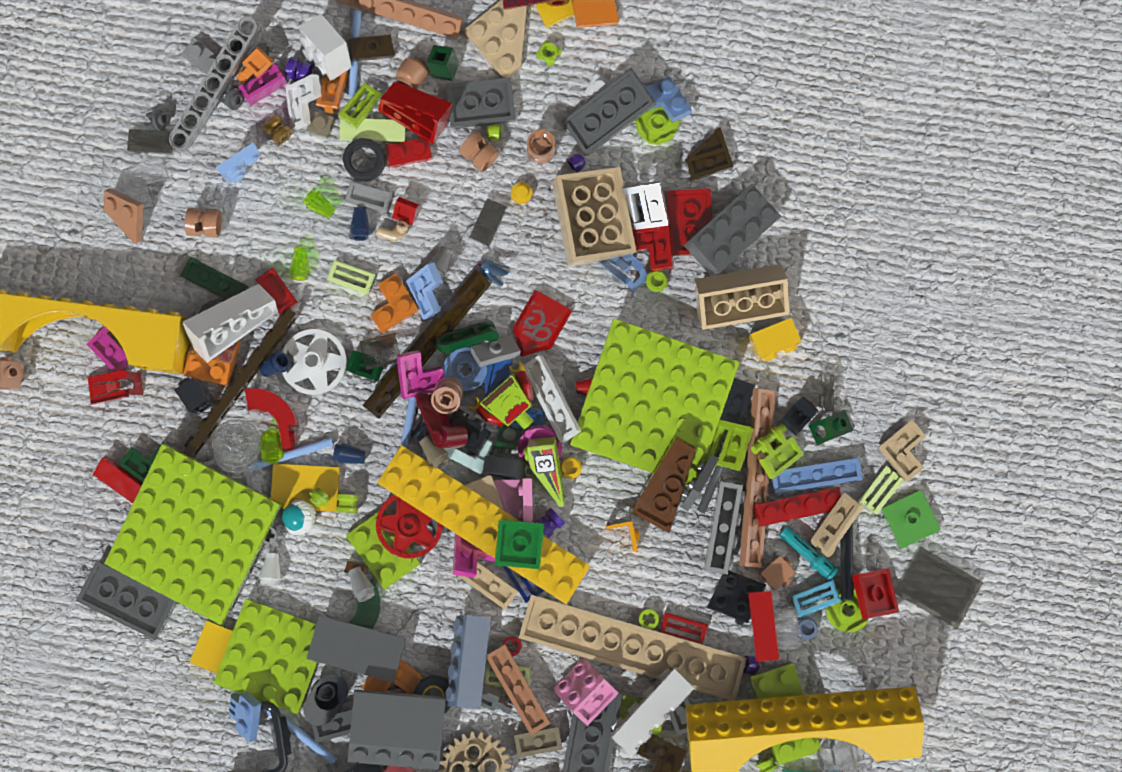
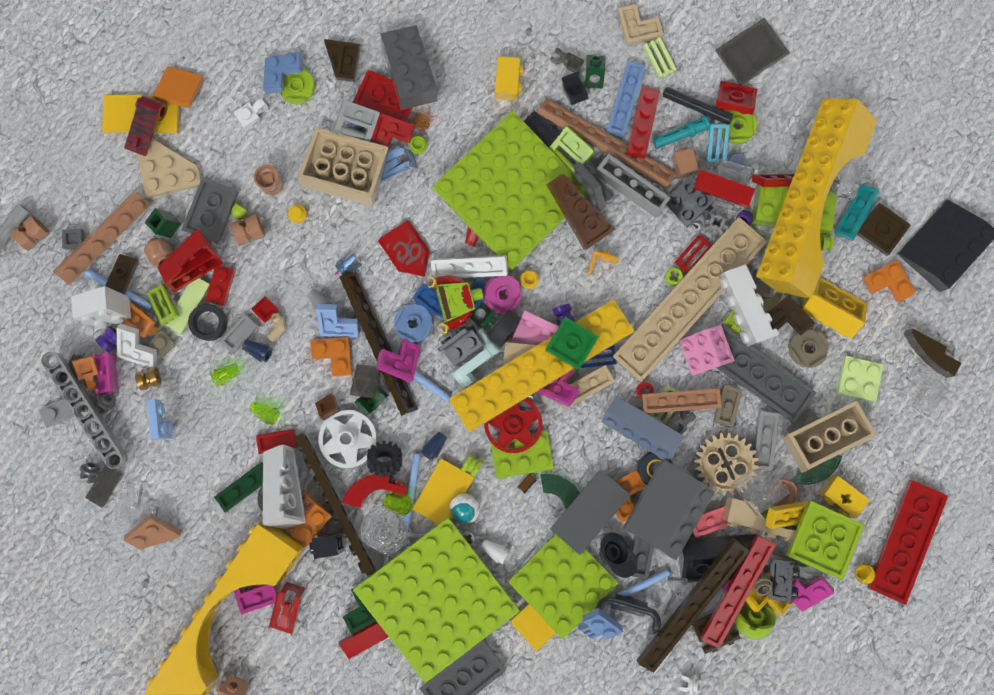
camera: 65 degrees left, 0 degrees up
(202, 222) = (196, 468): nougat wheel -> none
(275, 364) = (334, 468): dark blue cone -> none
(319, 406) = (384, 450): none -> black tyre
(319, 497) = (457, 484): lime plate -> none
(335, 325) = (327, 407): none -> reddish brown plate
(361, 585) = (541, 484): light grey cone -> none
(369, 283) = (307, 366): yellowish green tile -> none
(421, 430) = (445, 377): black slope -> none
(436, 456) = (466, 376): dark tan cone -> none
(439, 425) = (454, 362): dark red door -> none
(447, 395) = (427, 344): nougat wheel -> none
(467, 337) = (388, 308): dark green plate -> none
(488, 222) = (307, 250): clear smoke tile -> none
(495, 351) = (410, 292): light grey plate -> none
(542, 54) = (200, 134): lime plate -> none
(545, 463) = (517, 294): lime slope -> none
(576, 162) = (295, 160): dark purple hinge -> none
(609, 112) = (269, 115): dark grey tile -> none
(682, 272) = (421, 121): none -> clear orange plate
(719, 619) = (698, 224): none -> light grey arm
(732, 637) = (717, 219): none -> light grey gear
(742, 296) = (463, 84): tan brick -> none
(780, 457) = (598, 119): lime plate -> none
(801, 675) = (773, 180): none -> red tile
(836, 524) = (670, 100): tan plate -> none
(910, 519) = (692, 47): bright green plate -> none

